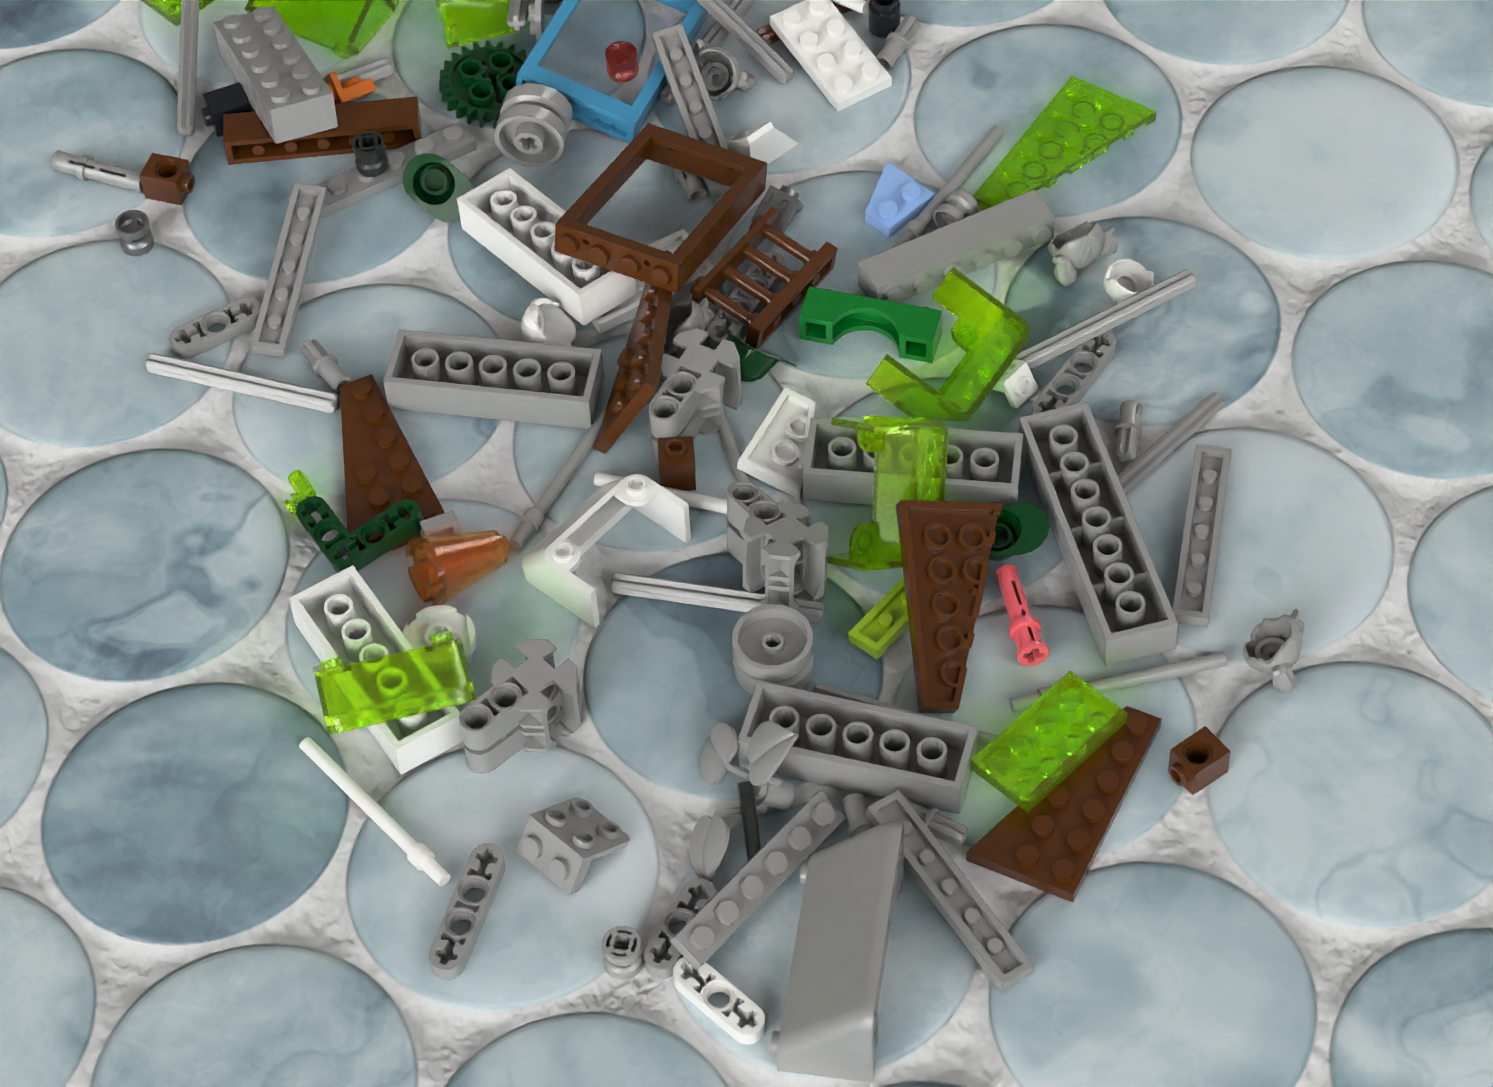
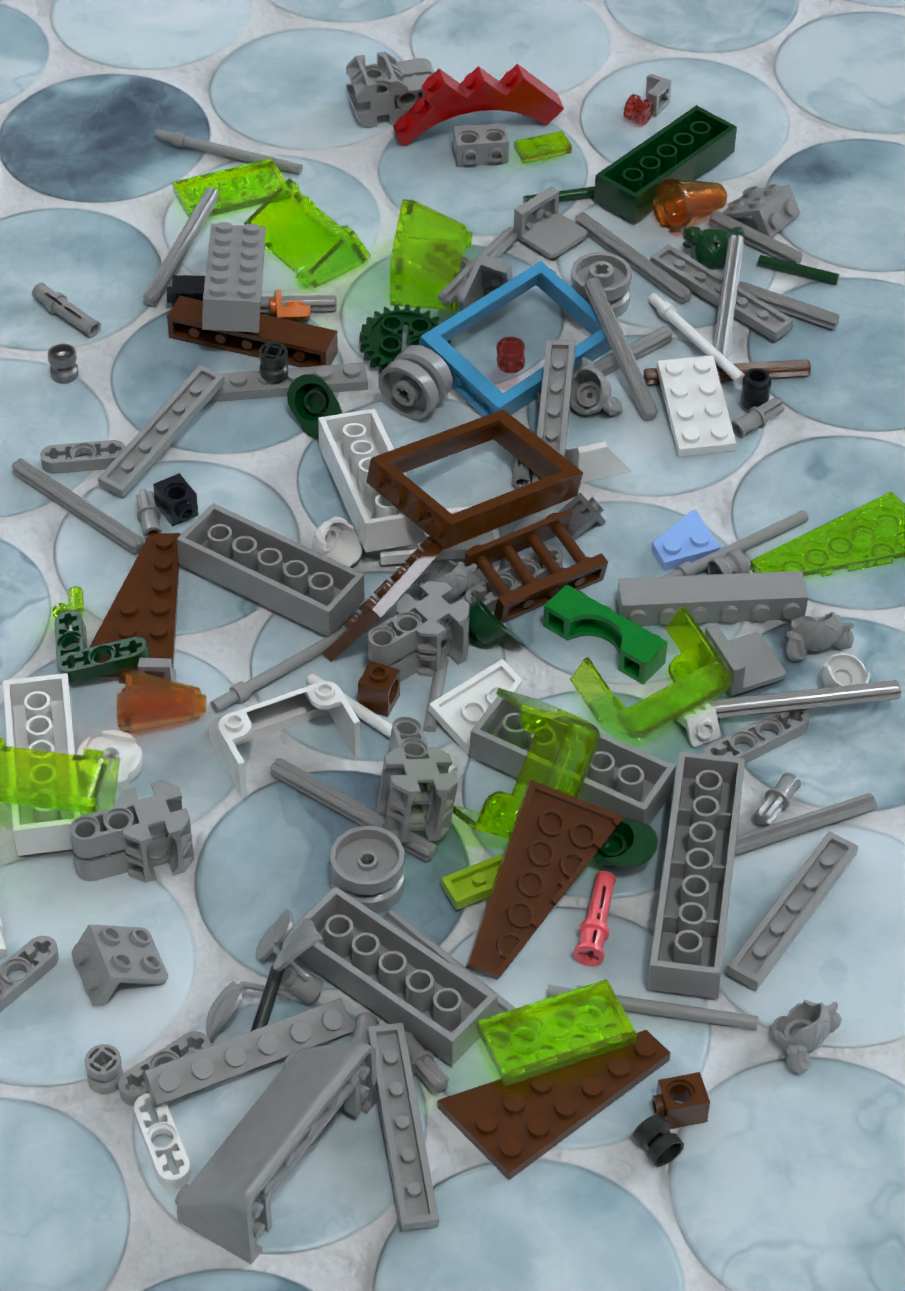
camera: 20 degrees right, 5 degrees down
(167, 179) = (111, 331): reddish brown brick -> none
(347, 339) = (175, 499): none -> black brick
(1027, 297) = (747, 659): none -> light grey bracket
(1197, 807) = (659, 1141): none -> pearl dark grey wheel

